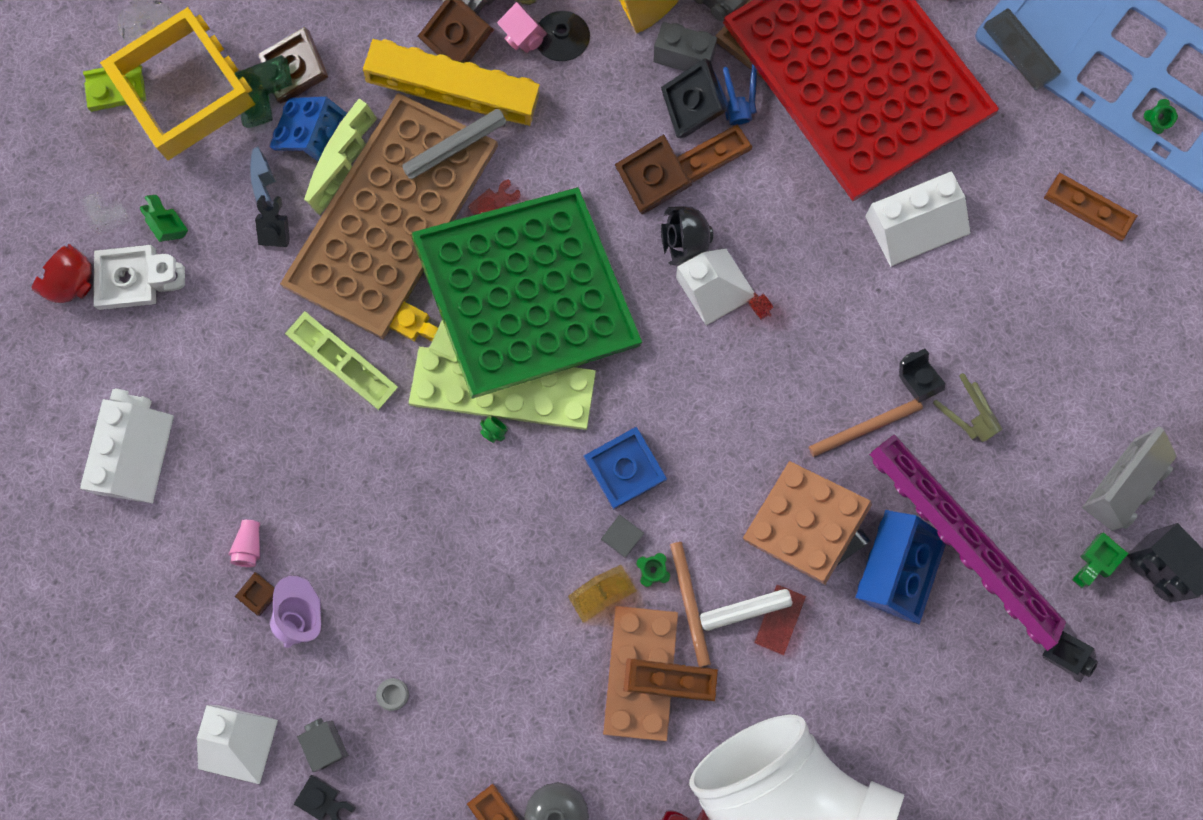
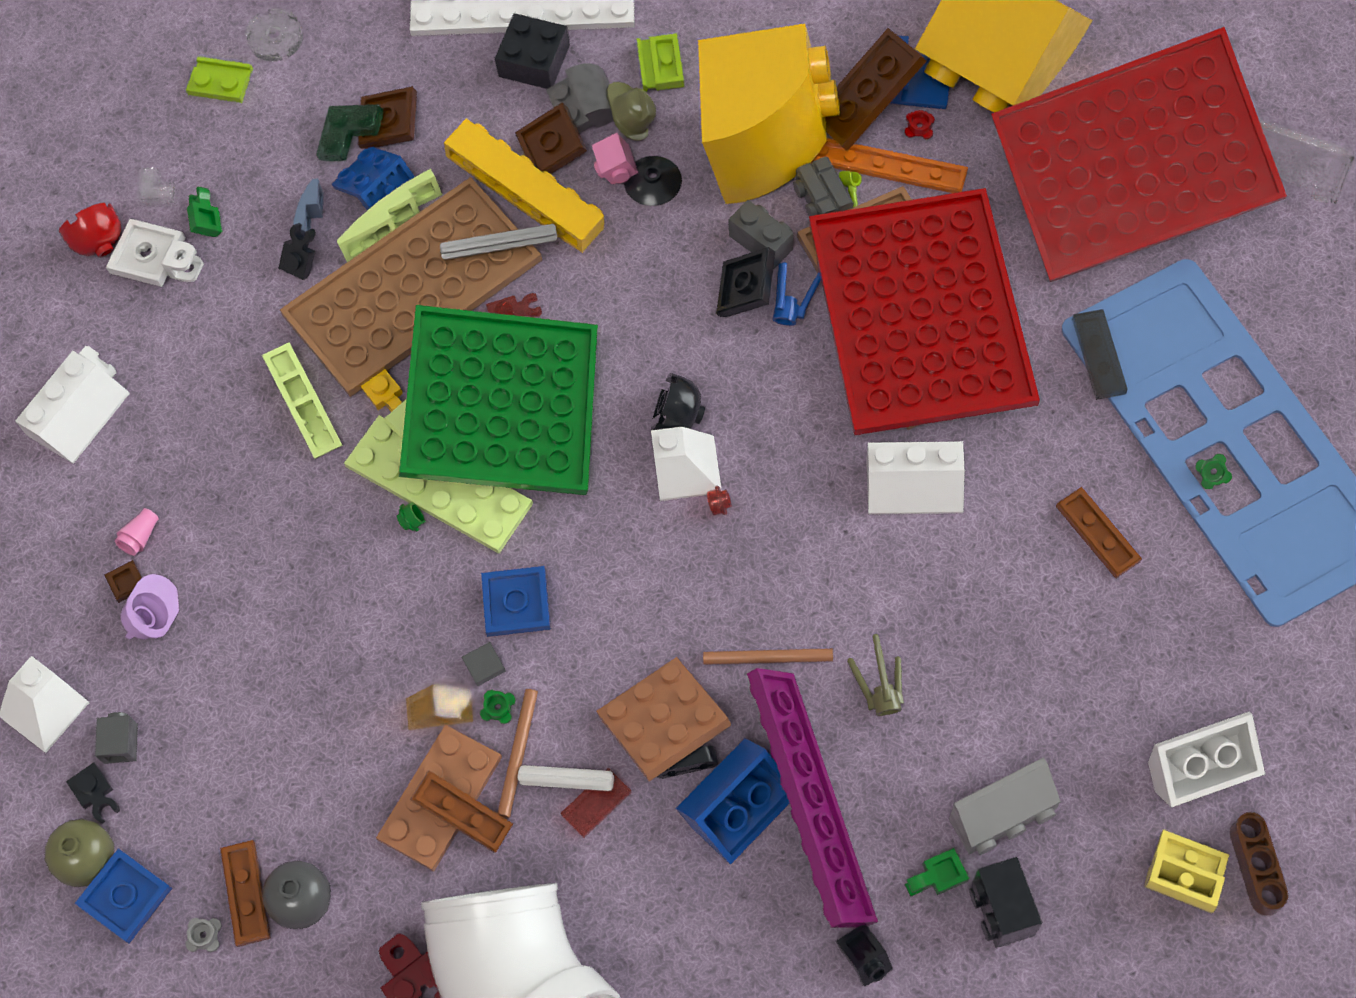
camera: 25 degrees right, 10 degrees down
(199, 124) = (281, 138): yellow window -> none
(392, 694) = (202, 721): light grey tile -> none
(653, 174) = (674, 339): reddish brown plate -> none
(714, 153) = (737, 343): dark orange tile -> none
(920, 376) = (843, 626): black bracket -> none

